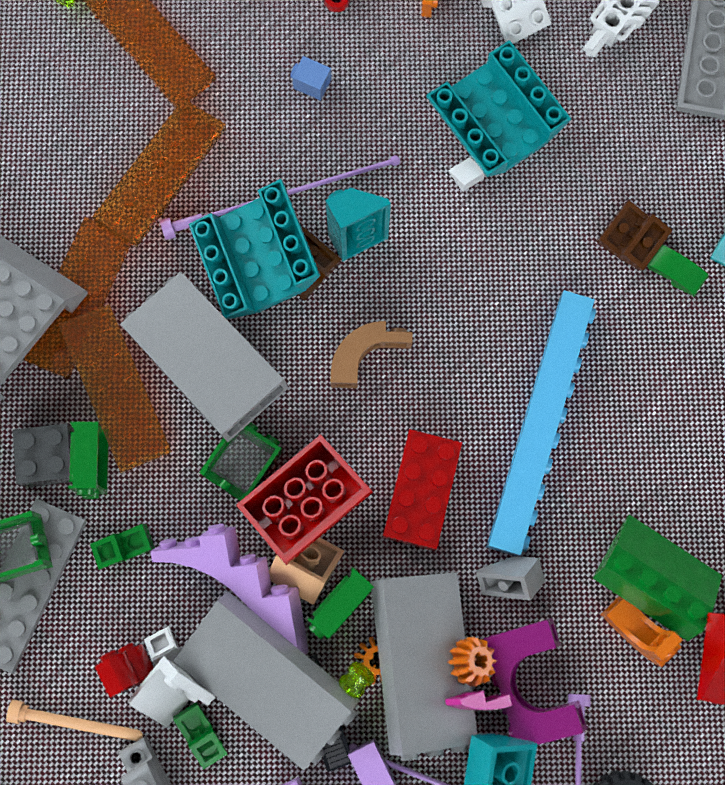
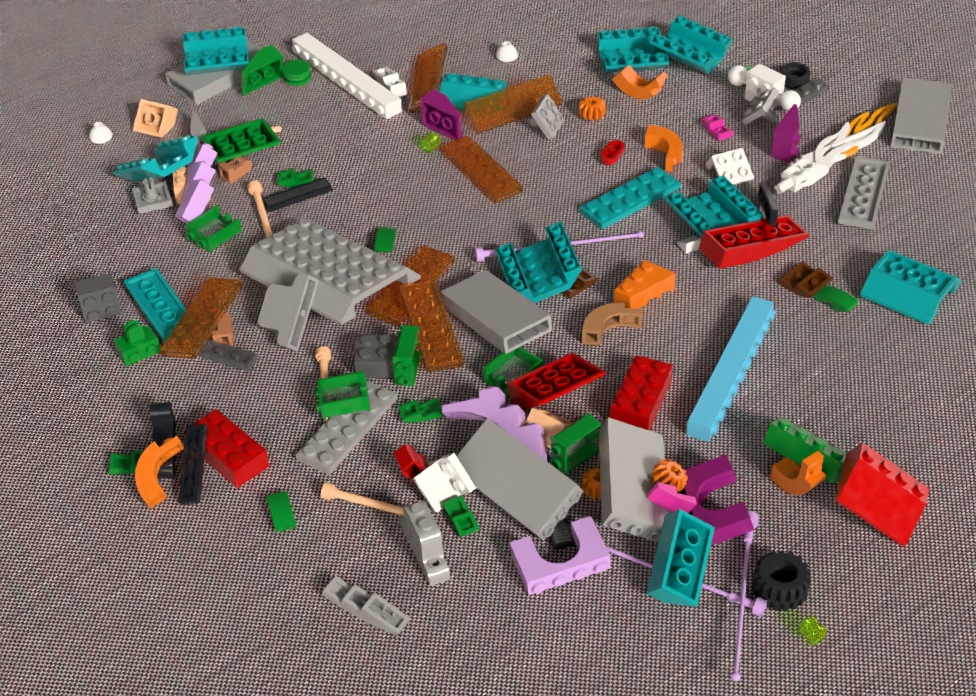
camera: 10 degrees right, 35 degrees down
(26, 208) = (385, 239): none -> green slope
(159, 173) = (478, 226): clear orange plate -> none
(311, 77) = (587, 189): medium blue brick -> none
(356, 221) = (610, 243): teal slope -> none
(356, 680) = (583, 479): clear neon green wheel -> none
(374, 82) = (629, 198): none -> teal plate
(407, 276) = (644, 284): none -> orange wedge
(512, 578) = (702, 443): light grey slope -> none
(557, 166) = (750, 241): none -> red slope
(577, 91) = (768, 203): none -> black tile

